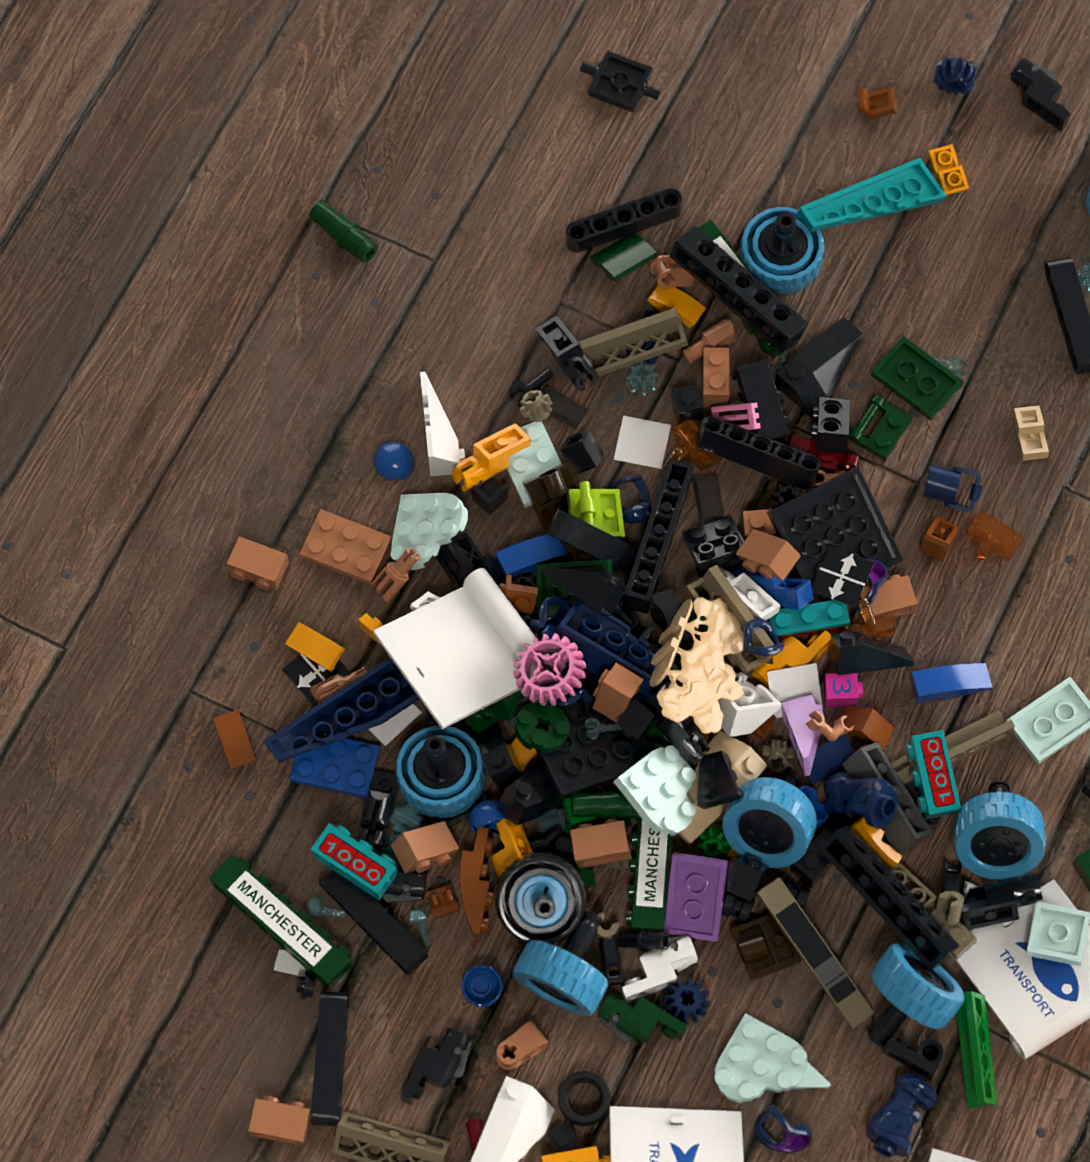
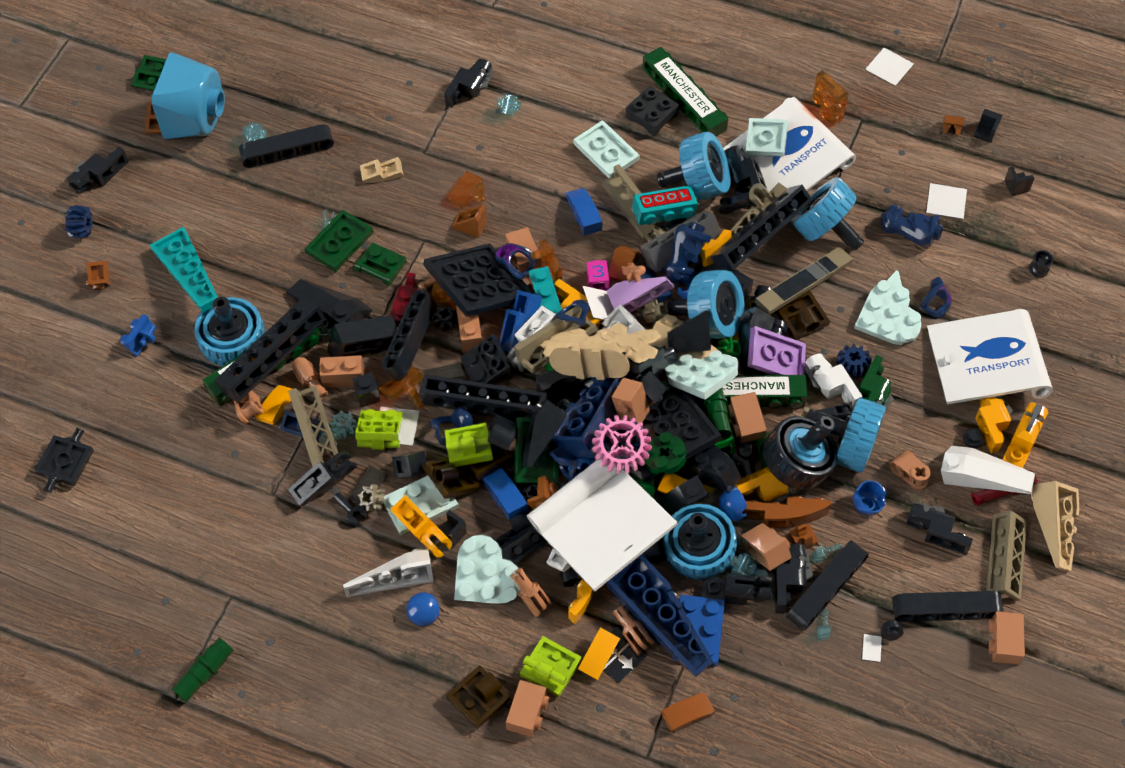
camera: 95 degrees left, 10 degrees down
(279, 514) = (478, 696): none -> dark brown plate
(281, 922) = (842, 655): dark green brick -> none
(306, 593) = (550, 666): none -> lime plate
(345, 546) = (503, 641): nougat plate -> none
(354, 860) = (789, 592): teal brick -> none
(584, 1077) = (943, 411): black tyre -> none
(592, 722) = (657, 417): clear light blue hand -> none
(624, 256) = (234, 442): dark green slope -> none
(632, 211) = (201, 455): black beam -> none
(634, 418) = (379, 429): none -> lime plate
(644, 940) = (814, 389): black axle -> none
(751, 414) = (372, 350): bright pink tile -> none
(767, 555) = (501, 315): nougat piece -> none
(786, 152) = (141, 333): none -> blue hips
(832, 425) = (383, 288): black brick -> none
(842, 576) = (512, 270): black sticker -> none
(861, 653) = (570, 259): black slope -> none
(902, 1053) = (866, 216): black plate -> none
(944, 483) = (429, 214): dark blue piece -> none
(947, 170) = (156, 230): light orange slope -> none
(976, 1052) = (867, 182): green fence -> none

